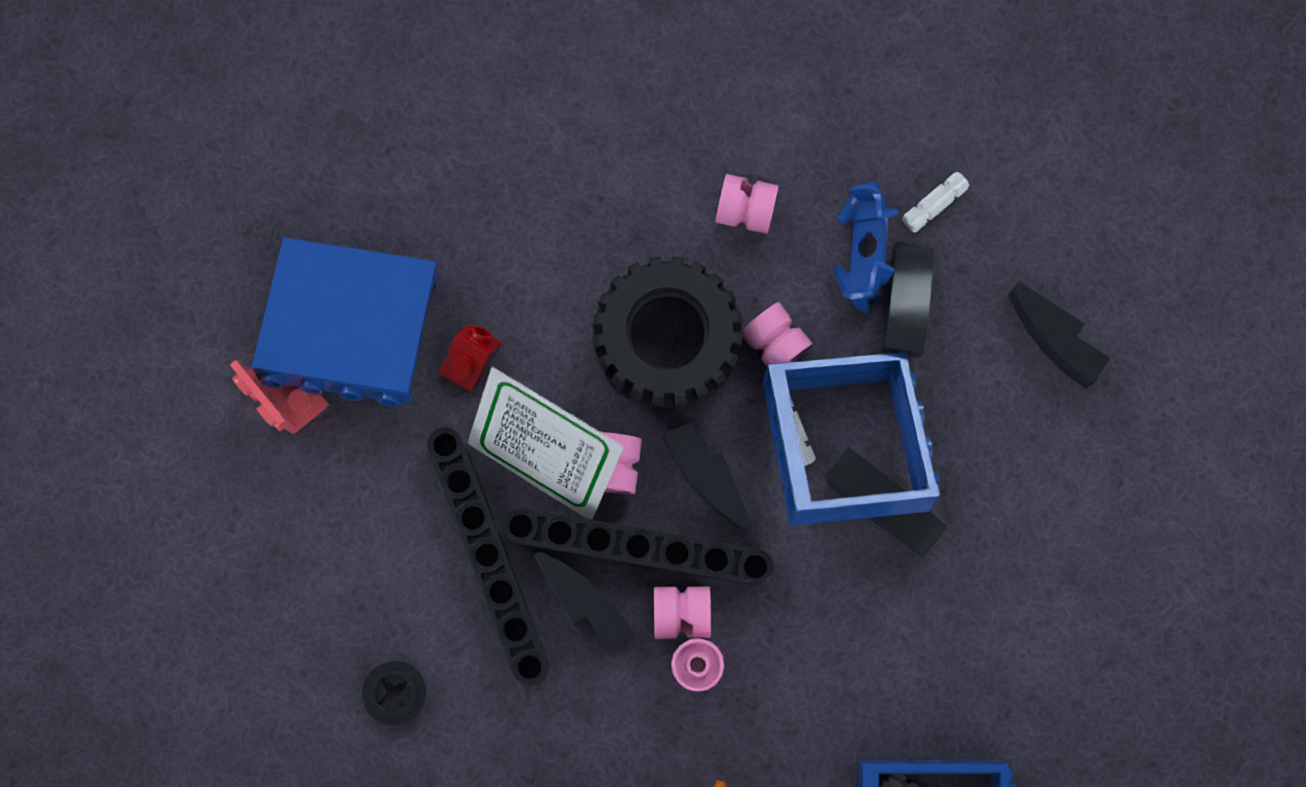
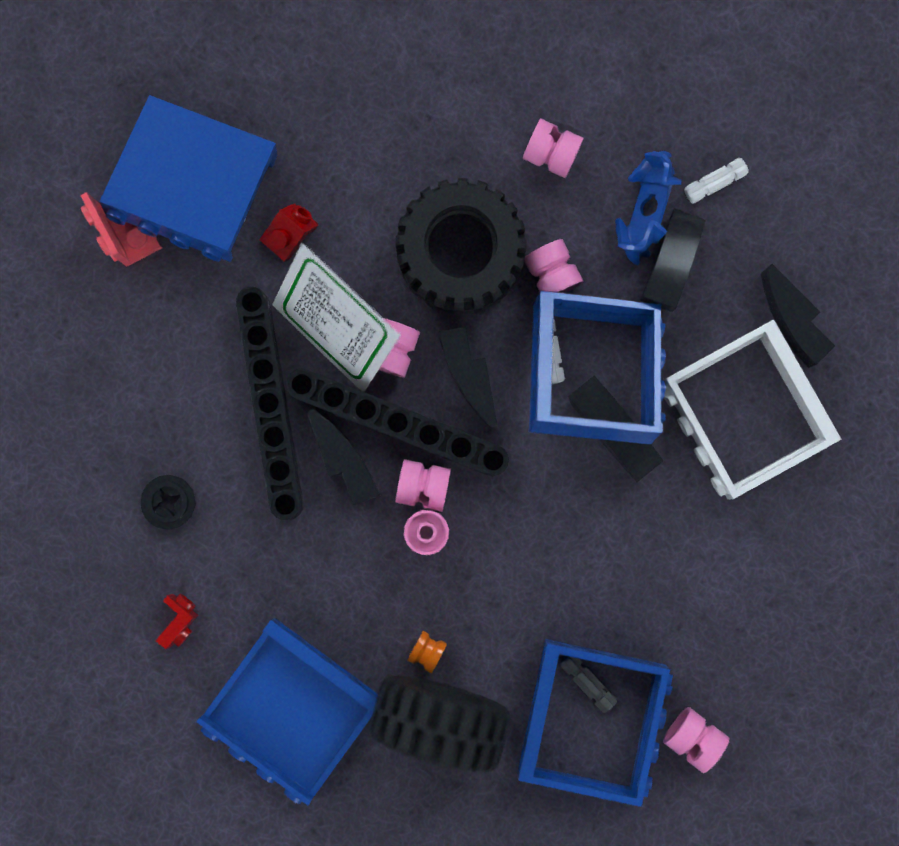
camera: 10 degrees right, 5 degrees up
(1083, 416) = (798, 387): none -> white window

